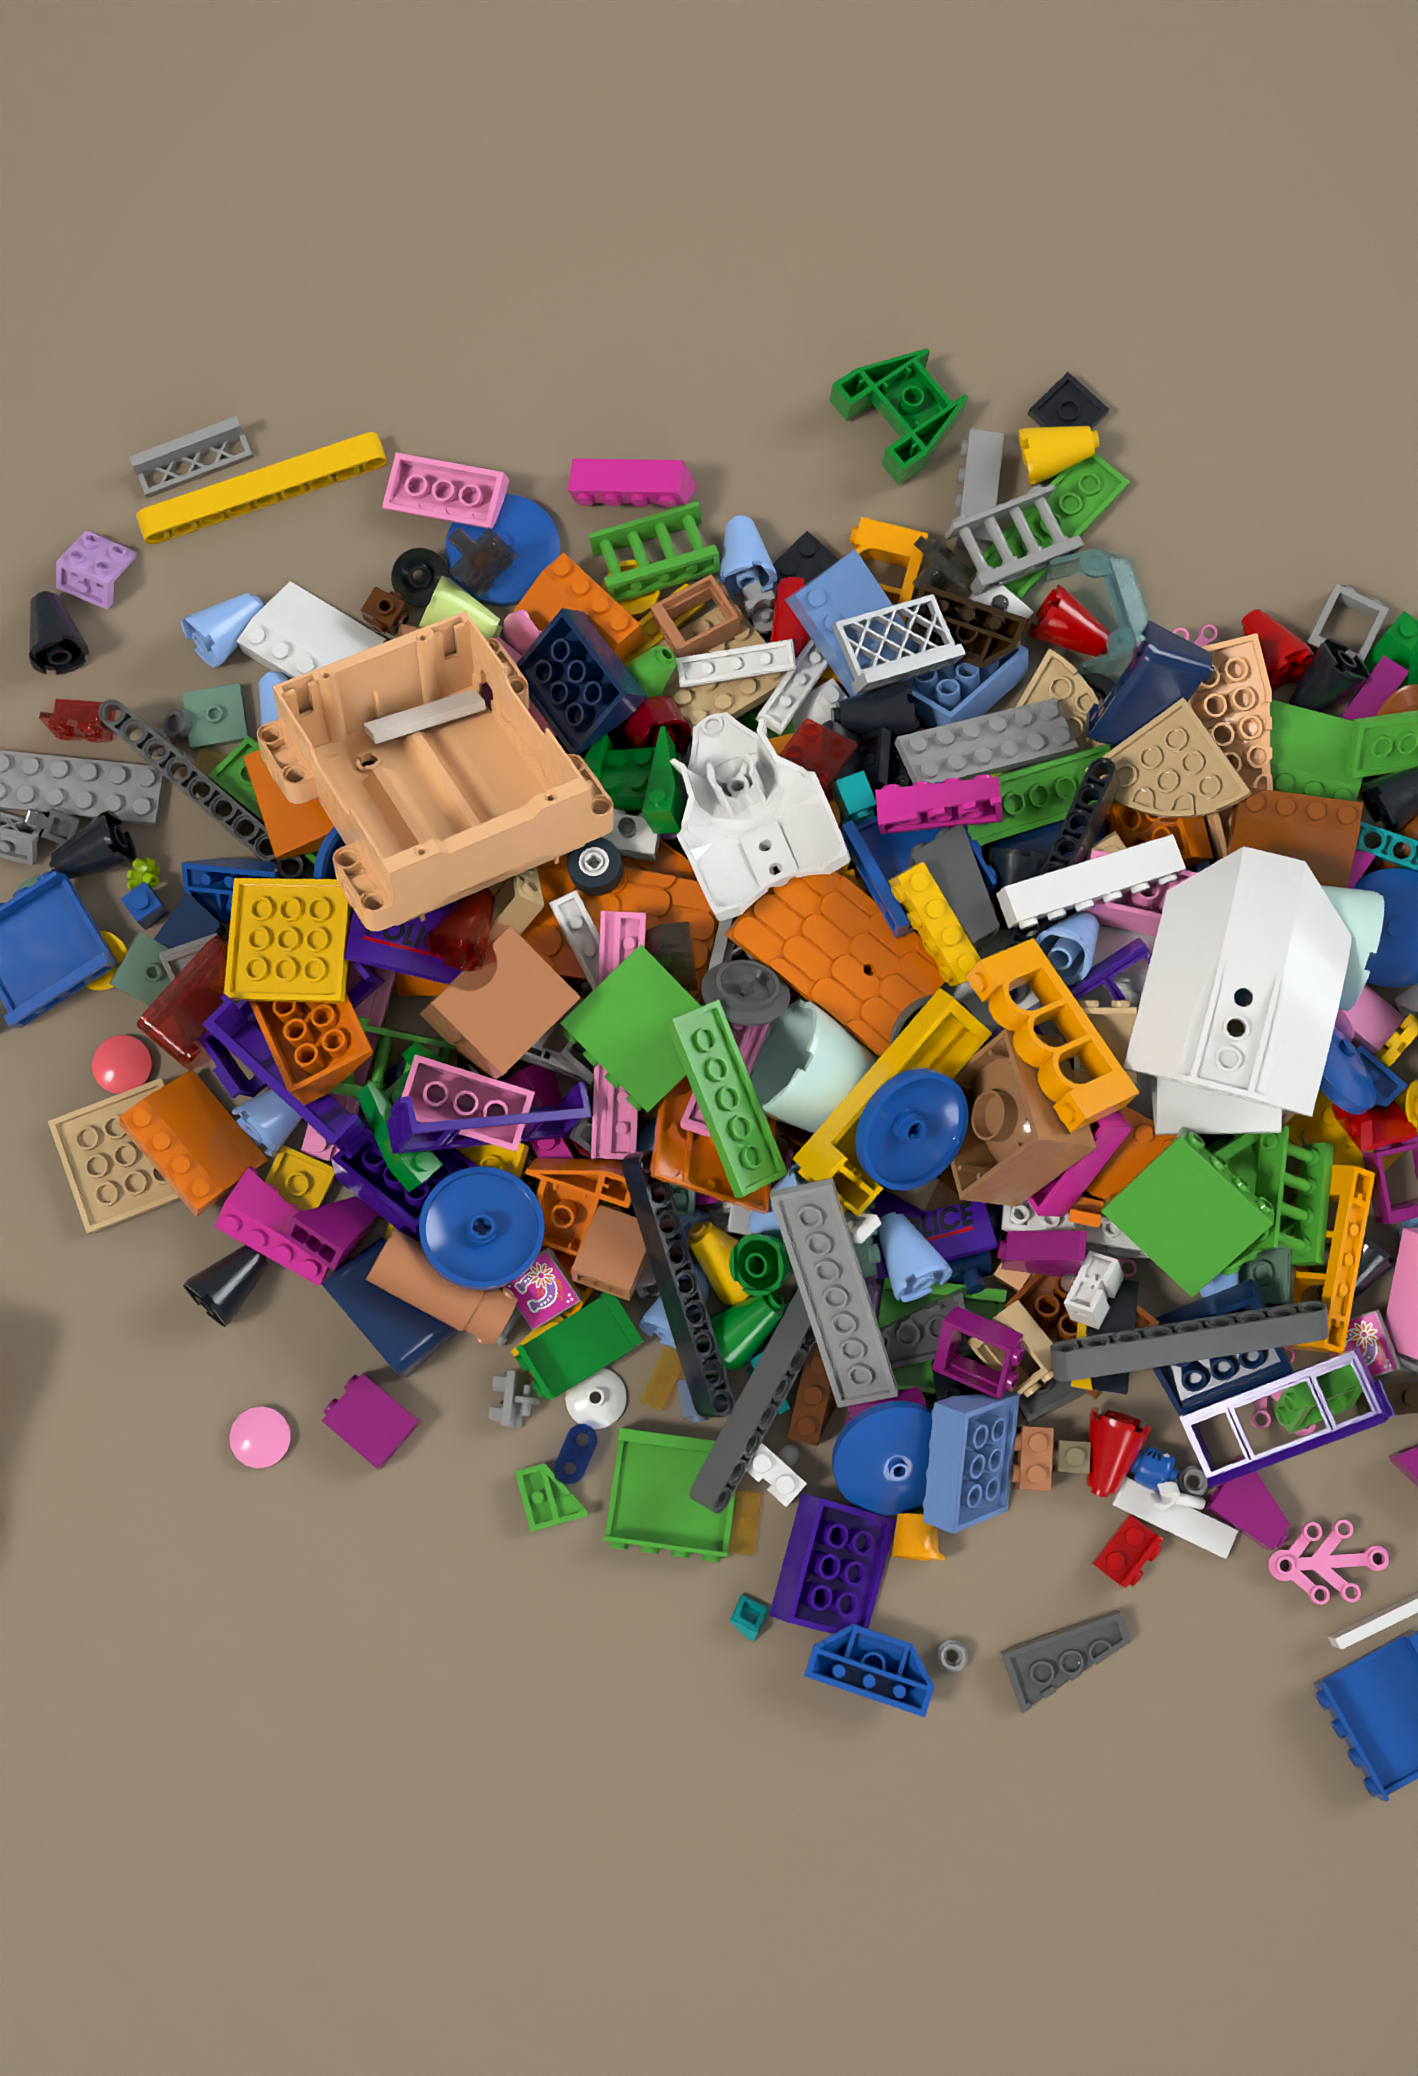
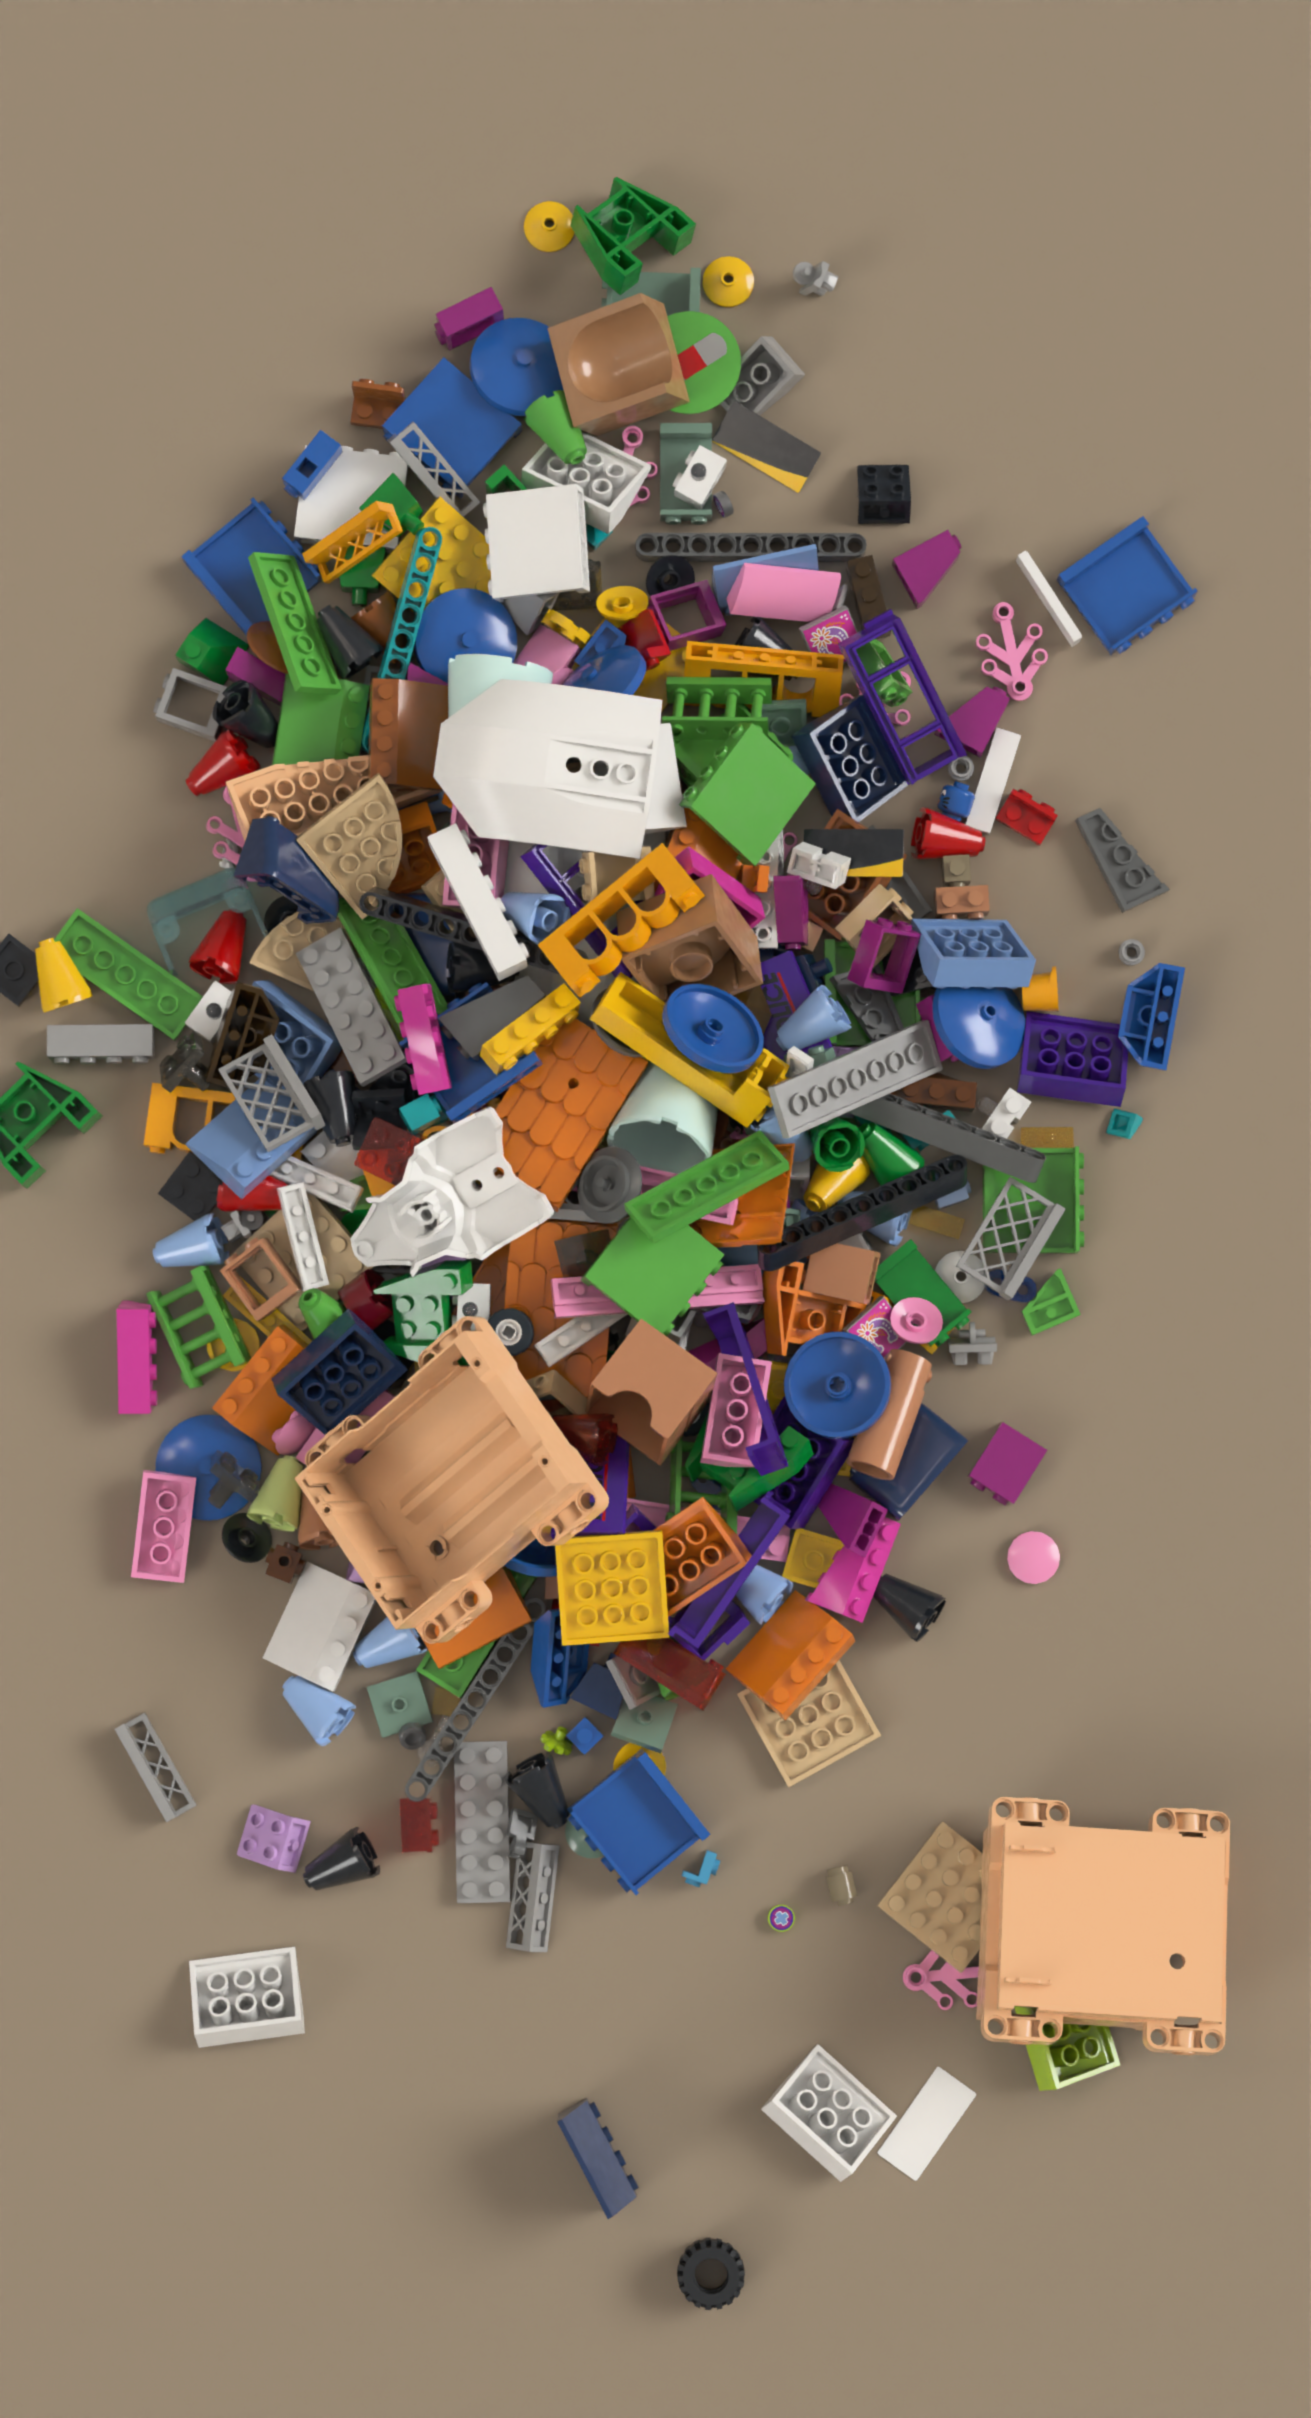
camera: 100 degrees left, 5 degrees up
(121, 1064) = (728, 1733): coral dish -> none
(261, 488) = (177, 1697): yellow beam -> none
(424, 716) = (387, 1505): white tile -> none
(559, 1339) = (918, 1312): none -> bright pink dish
(613, 1481) = (1030, 1249): none -> light grey fence
(1012, 567) = (163, 983): light grey fence -> none
(1171, 1496) = (976, 786): white bar -> none
(1189, 1340) = (853, 782): dark grey beam -> none

